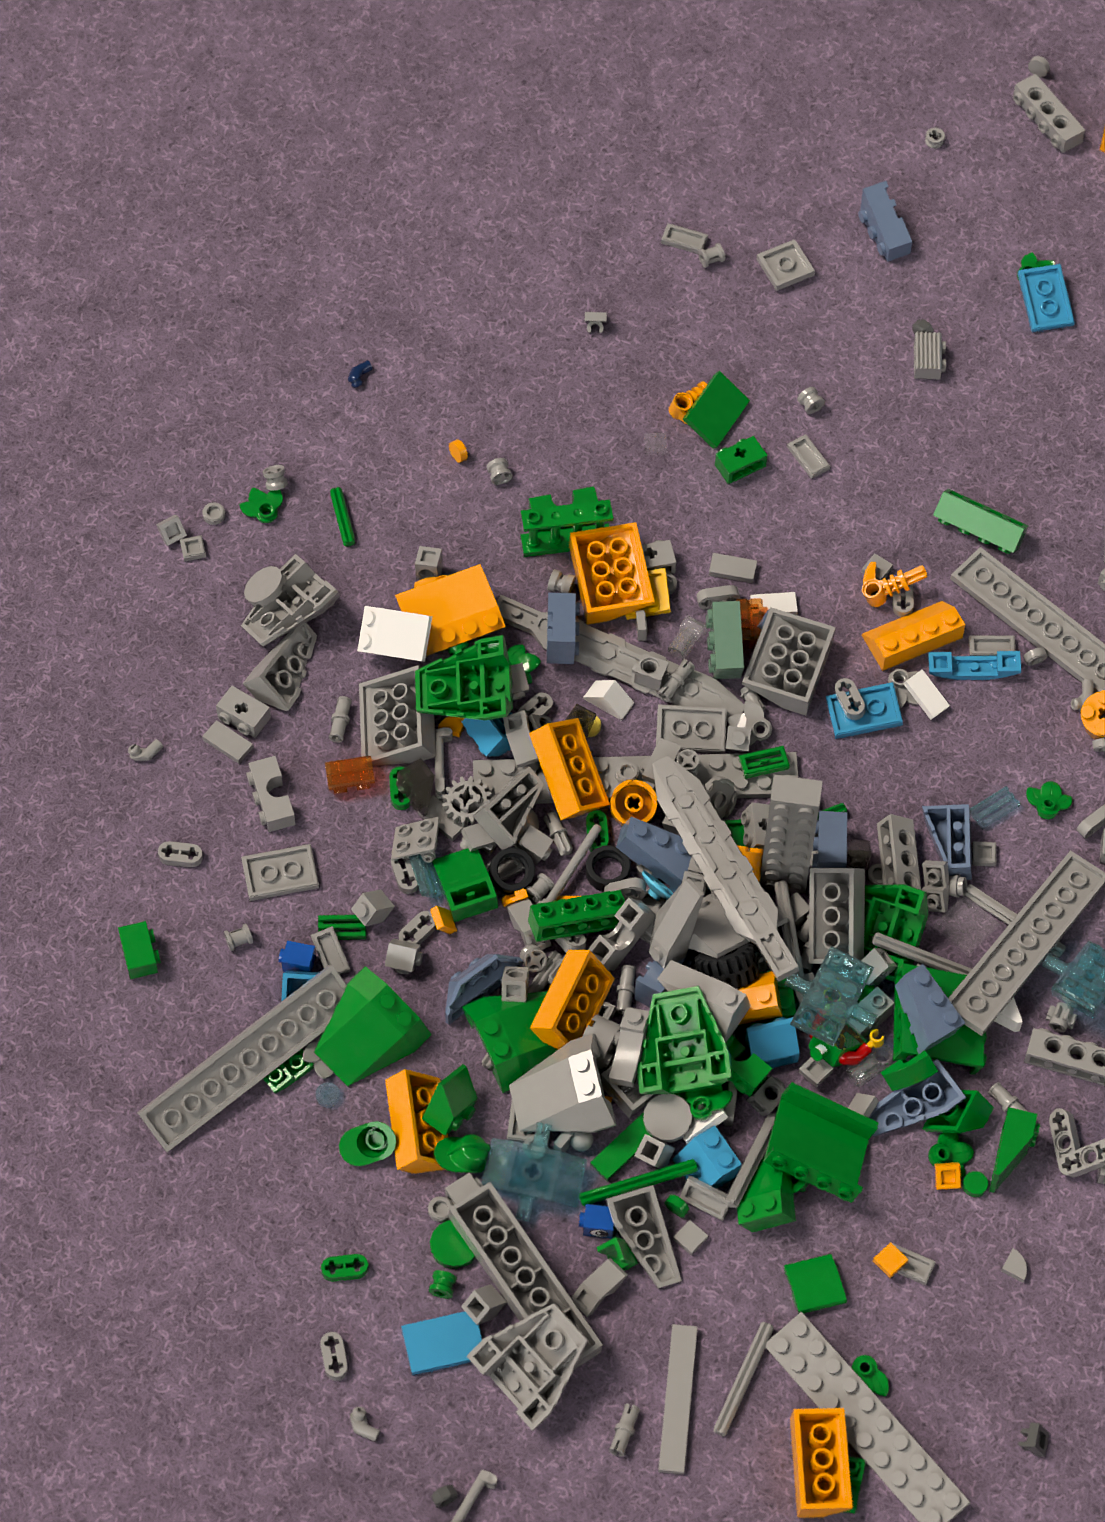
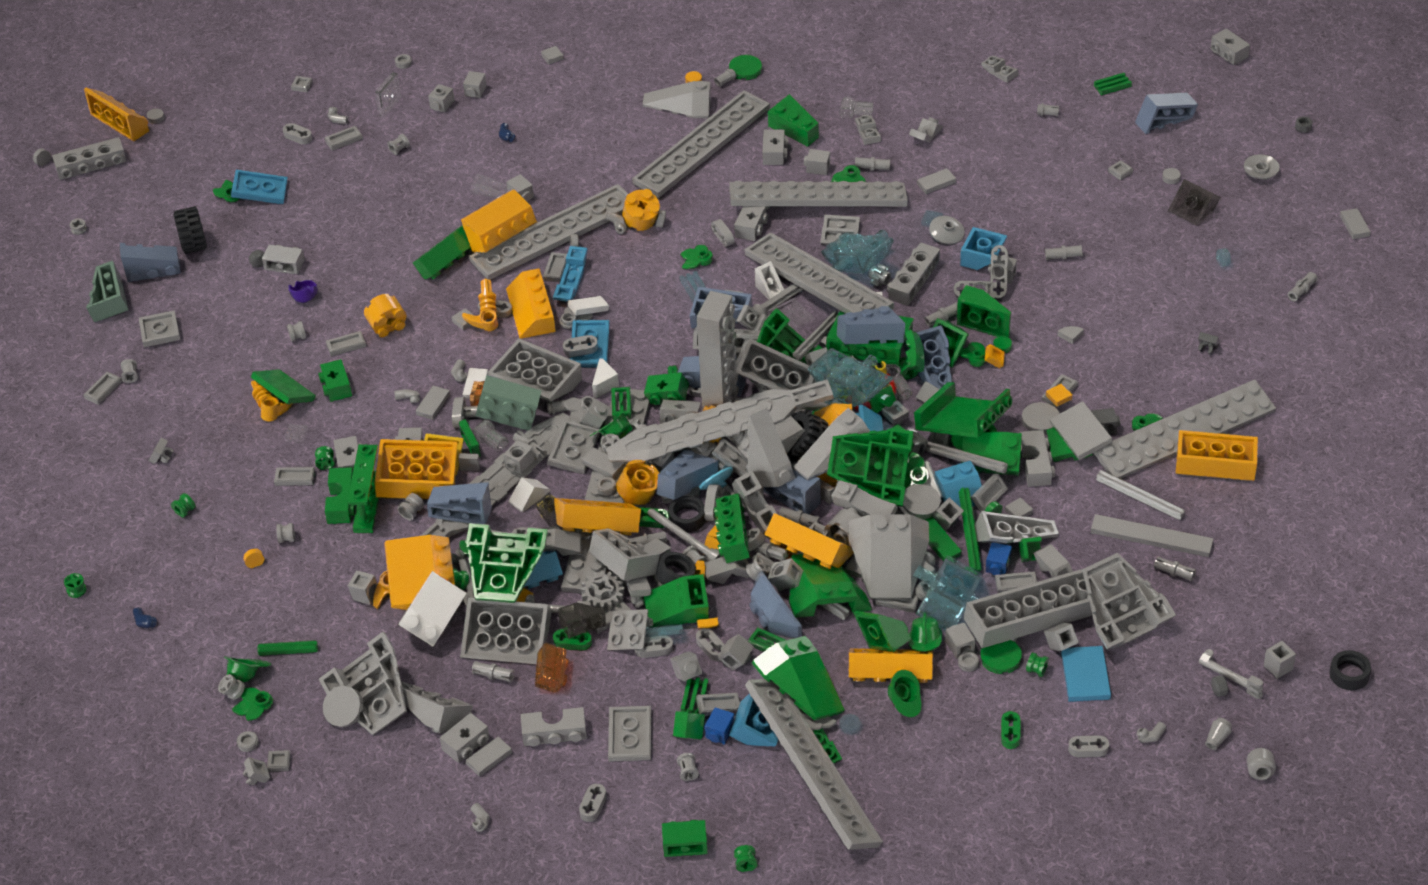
camera: 75 degrees left, 15 degrees down
(123, 1016) = (745, 858): none -> green wheel
(296, 927) = (688, 725): none -> green panel
(304, 481) = (244, 668): none -> green piece
(373, 1500) = (1218, 733): none -> light grey cone
(393, 293) = (75, 585): none -> green wheel
(424, 1009) = (762, 644): none -> green tile
(520, 363) = (183, 505): none -> green wheel
(571, 1248) = (1011, 581): none -> light grey tile
(590, 459) = (294, 476): none -> light grey tile
(618, 479) = (324, 457): none -> green wheel
(626, 502) = (346, 451): none -> light grey brick
(674, 618) = (469, 437): none -> green tile
(714, 759) = (619, 427): none -> green piece
(739, 540) = (407, 393): none -> light grey arm
(757, 1254) = (1038, 470): none -> light grey arch
(786, 581) = (457, 371): none -> light grey arm
(805, 736) = (604, 379): none -> white slope
(824, 1290) = (1081, 430): none -> light grey tile
(825, 198) = (107, 293): none -> sand green wedge
(851, 482) = (385, 314): none -> light orange brick
(853, 1245) = (1038, 416): none -> light grey tile
(856, 1321) = (1108, 419): none -> dark grey brick
(878, 389) = (303, 291): none -> dark purple hair
(939, 246) = (190, 230): none -> black tyre
(1016, 888) = (767, 280): none -> white slope
(1035, 561) = (498, 221): none -> light orange slope

